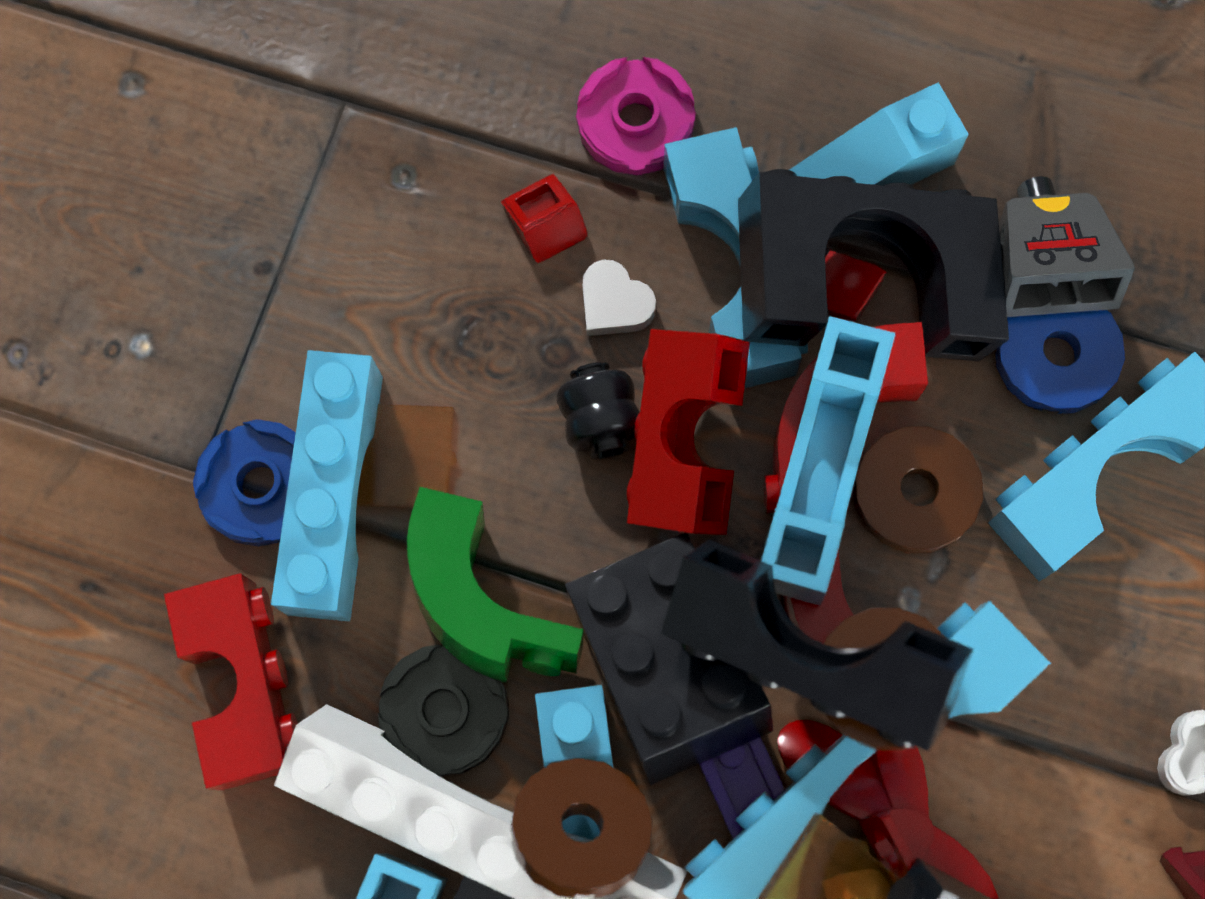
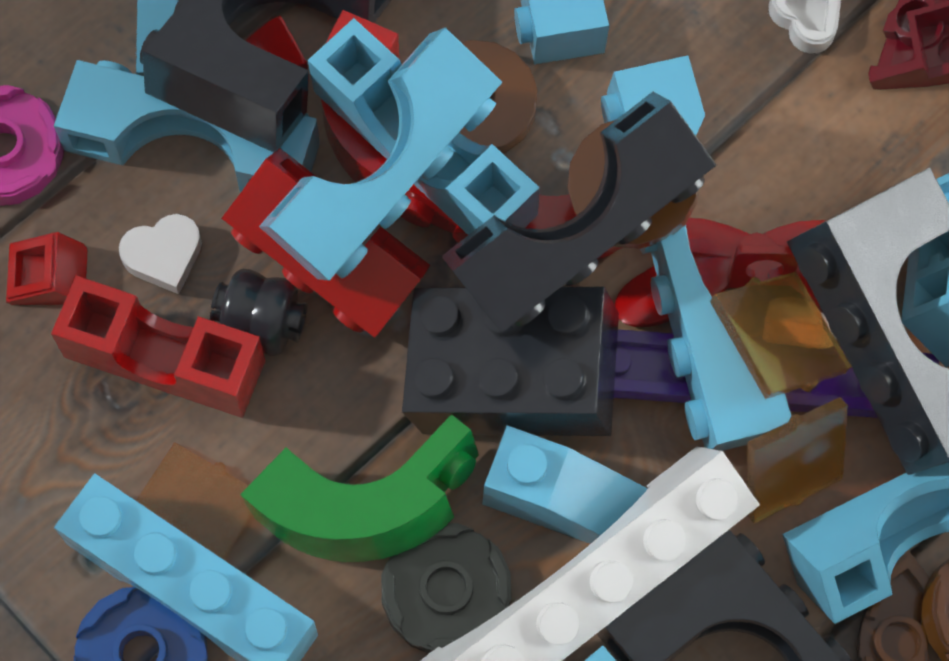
camera: 70 degrees left, 5 degrees down
(517, 345) = (121, 337): none -> red arch
(573, 866) = (614, 464): reddish brown tile -> none
(687, 420) = (436, 96): none -> medium azure arch

